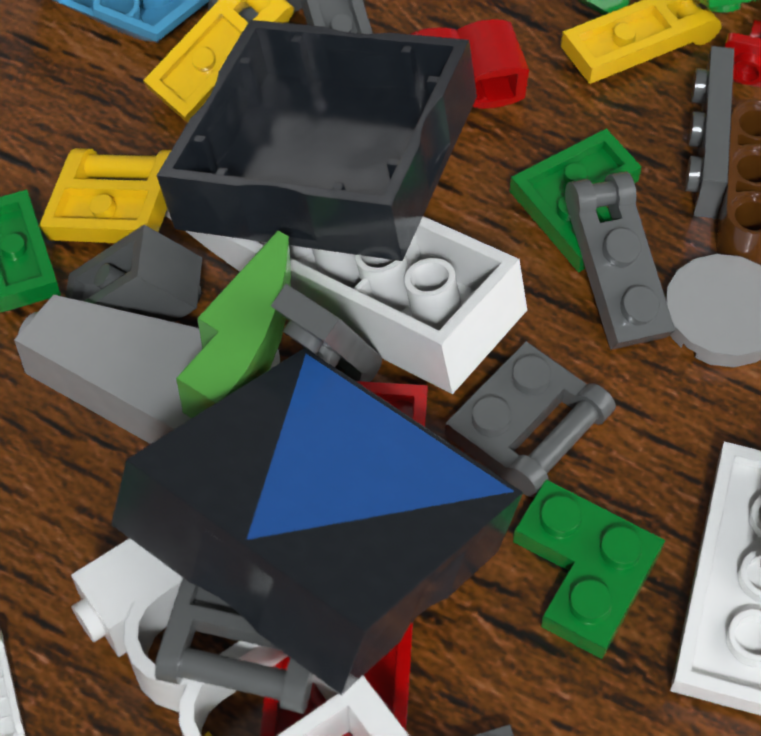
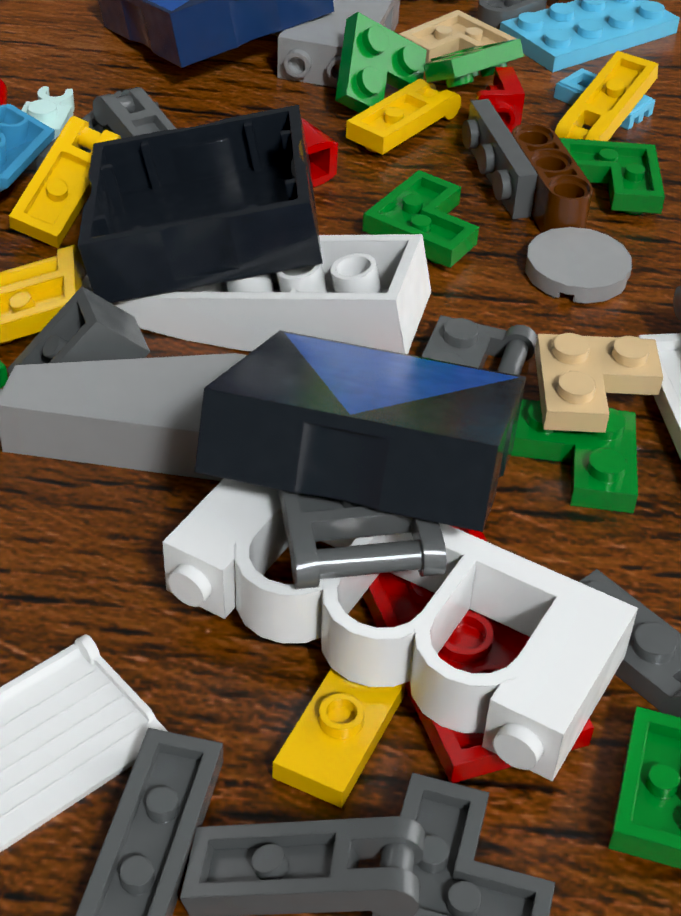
camera: 25 degrees left, 15 degrees down
(238, 330) = (211, 331): bright green slope -> none
(326, 335) = (285, 303): dark grey plate -> none
(618, 261) = (483, 243): dark grey plate -> none
(623, 471) = (580, 370): none -> tan plate

